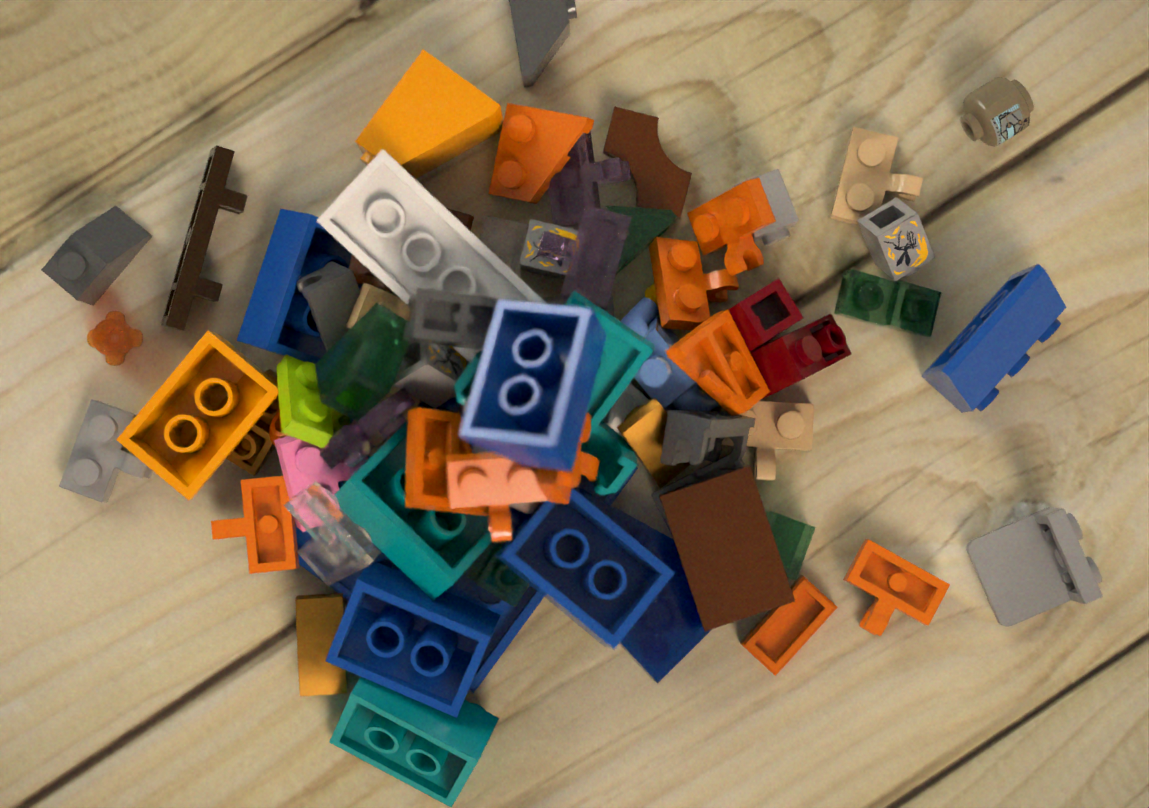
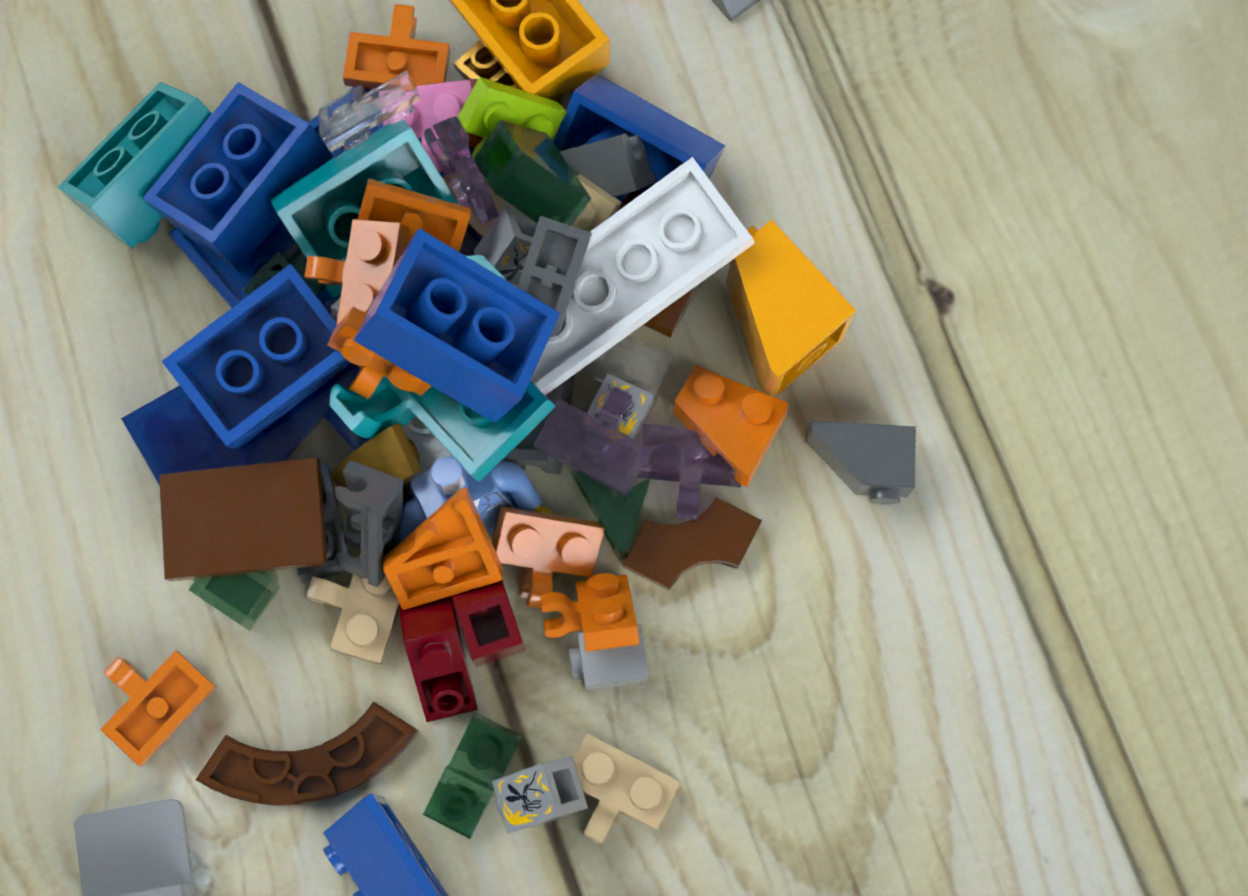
camera: 100 degrees right, 10 degrees down
(210, 198) = (669, 40): dark brown hinge -> none
(316, 627) = (284, 86): pearl gold slope -> none
(788, 627) = (139, 574): orange tile -> none
(917, 440) = (309, 773): none -> reddish brown tile

